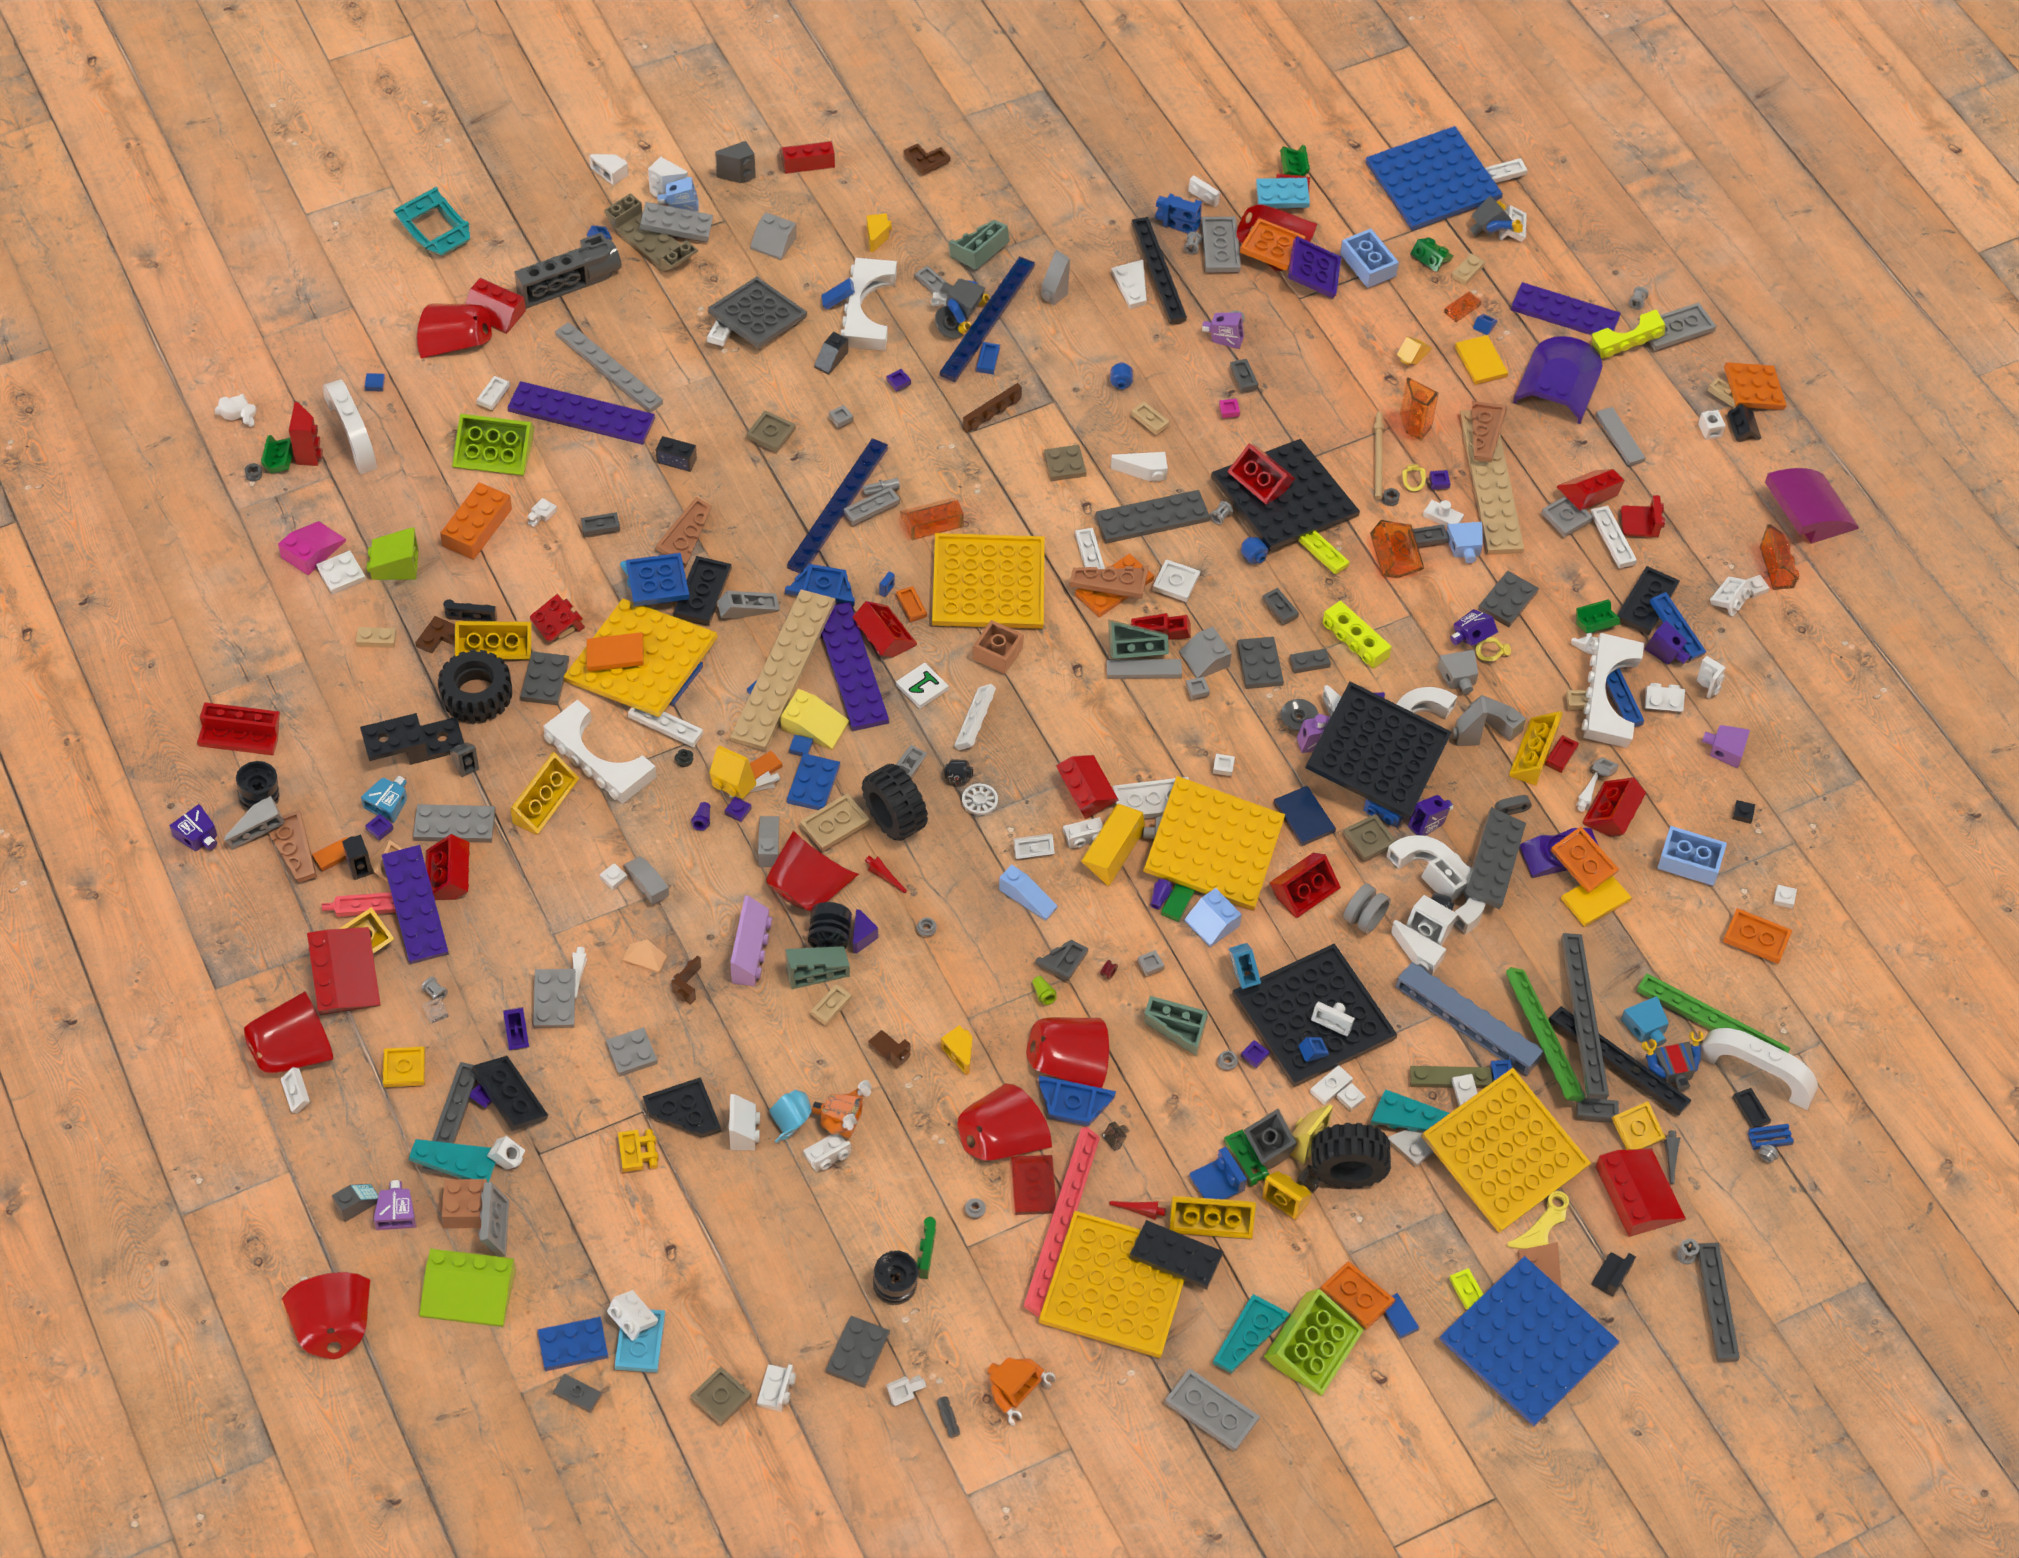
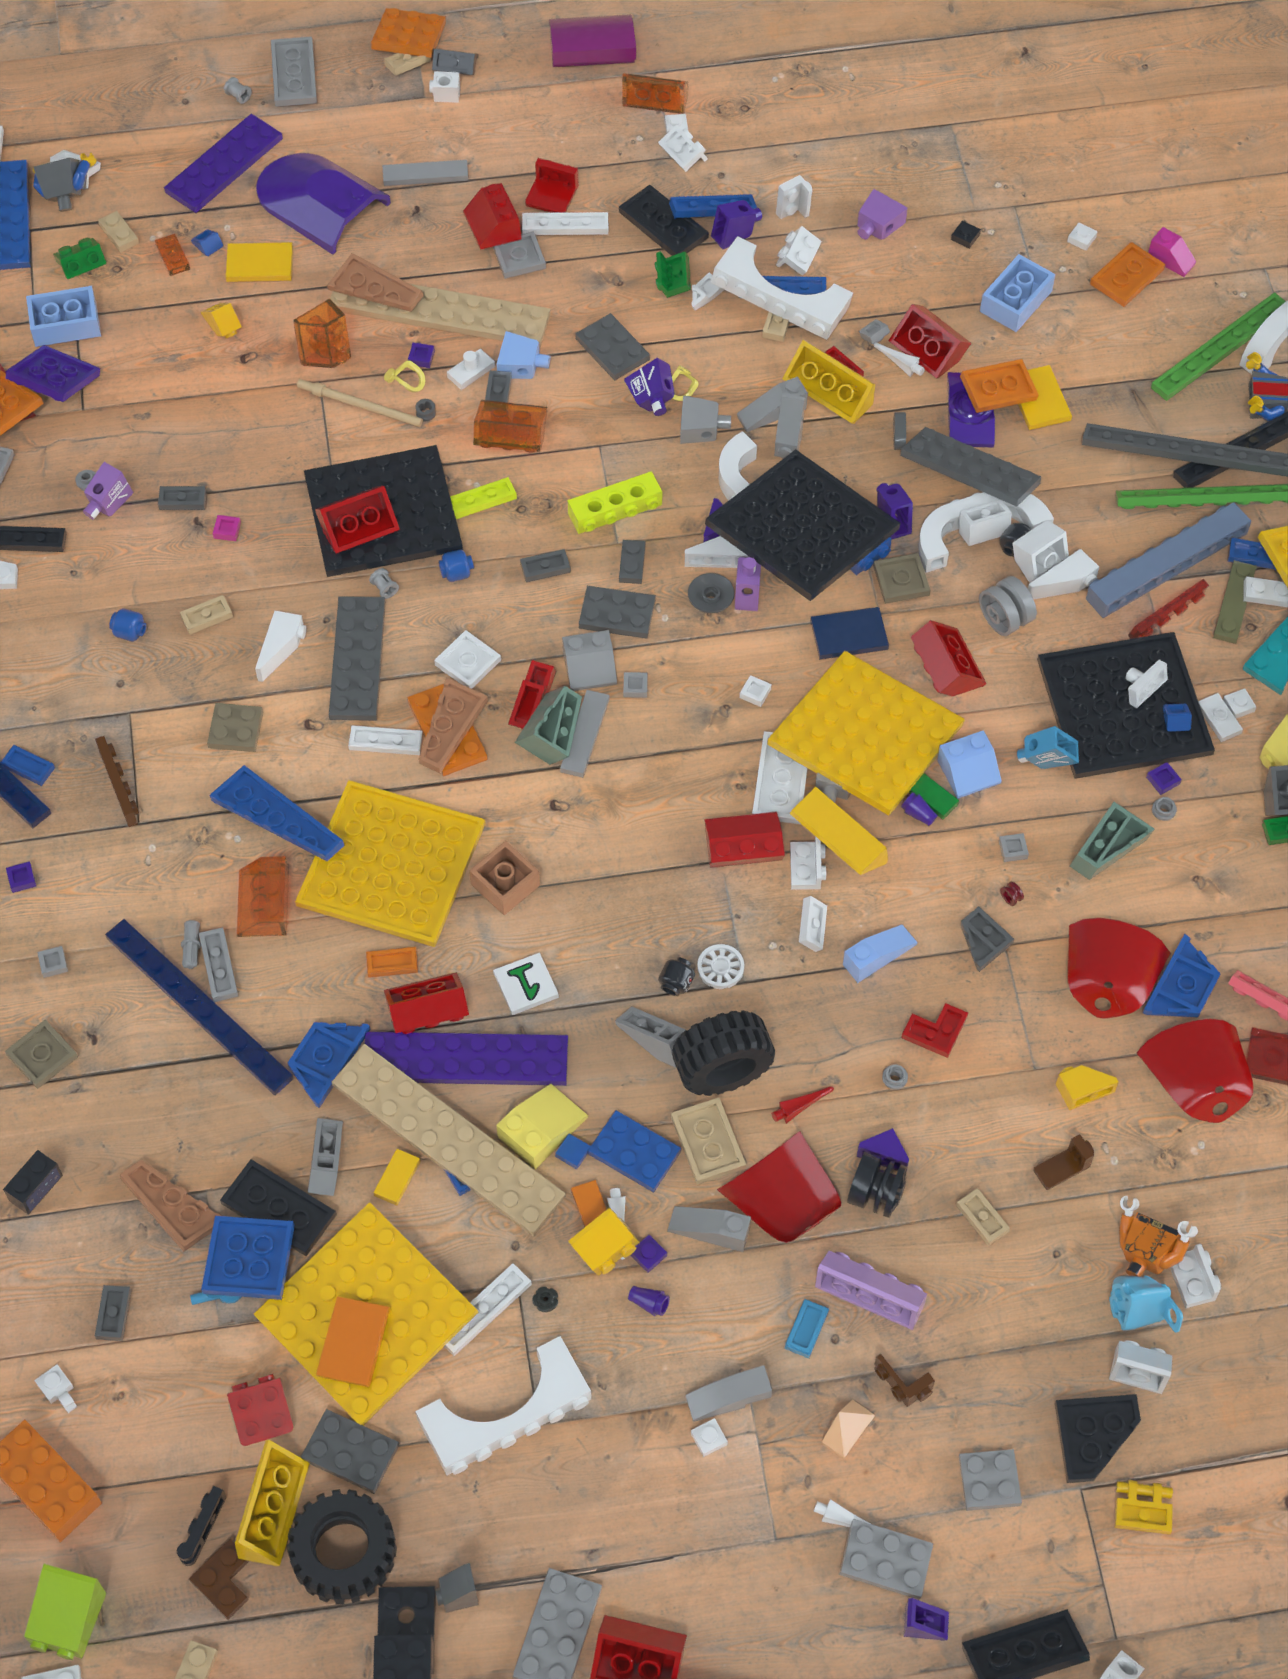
camera: 70 degrees left, 5 degrees up
(543, 795) = (554, 1496): yellow slope -> none
(711, 916) = (806, 1328): none -> dark azure tile
(748, 650) = (396, 1177): none -> yellow tile
(816, 965) = (924, 1218): sand green wedge -> none
(887, 584) = (354, 979): blue tile -> none
(970, 948) = (937, 1036): none -> red plate
(975, 717) = (599, 935): white plate -> none
(1003, 495) = (265, 806): none -> blue wing
(1045, 992) = (1023, 971): lime cone -> none
(1115, 1135) = (1243, 951): clear smoke tile -> none
(1423, 1031) = (1176, 606): none -> clear red plate
(1609, 342) = (292, 91): neon yellow arch -> none
(1647, 1021) = (1211, 401): dark azure torso -> none
(1797, 963) = (1172, 251): none -> dark pink slope

